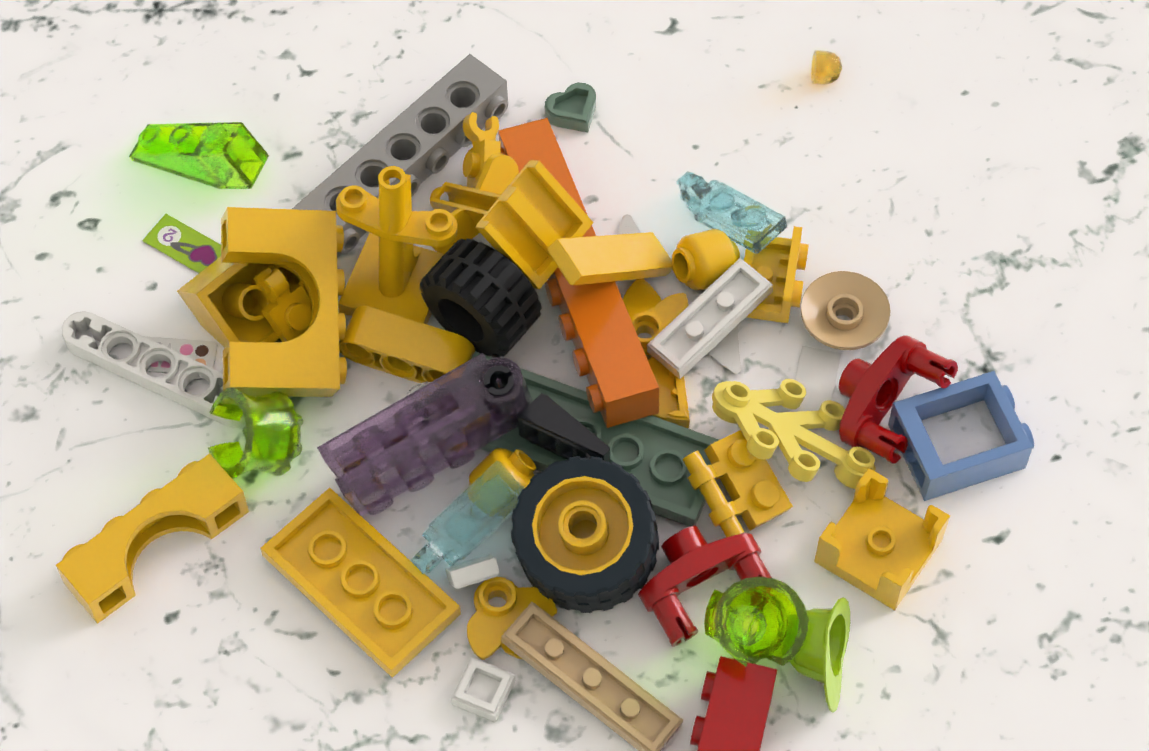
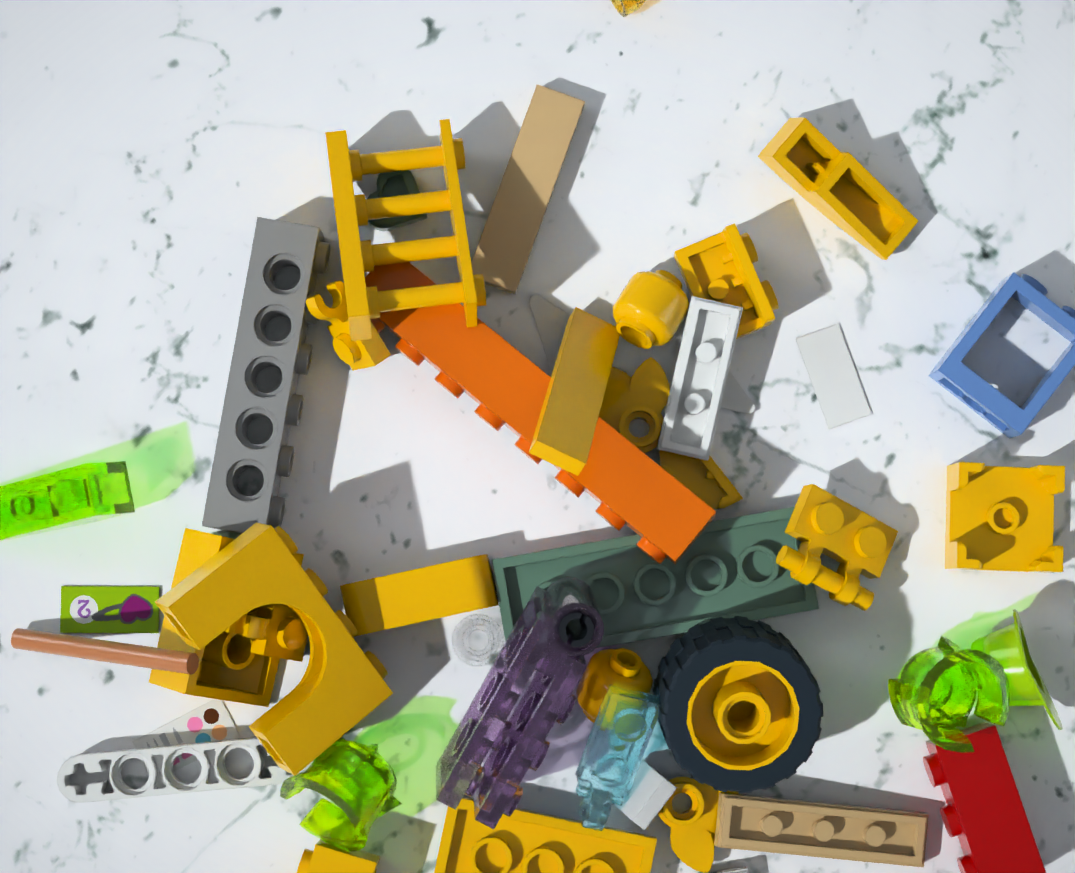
camera: 35 degrees left, 25 degrees up
(164, 249) = (105, 651): none -> nougat bar
(389, 263) = (349, 519): yellow piece -> none
(481, 297) = (468, 510): black tyre -> none
(515, 213) = (477, 413): yellow piece -> none
(536, 80) = (360, 256): none -> yellow fence
(559, 432) = (633, 608): black slope -> none
(668, 148) = (526, 188): none -> tan tile
(691, 564) = (844, 652): red connector -> none
(731, 211) = (644, 239): clear light blue hinge -> none
(746, 407) = (850, 458): light yellow plant -> none
(846, 295) = (841, 264): tan dish -> none
(877, 386) = (904, 352): red connector -> none
(898, 259) = (838, 187): none -> yellow slope

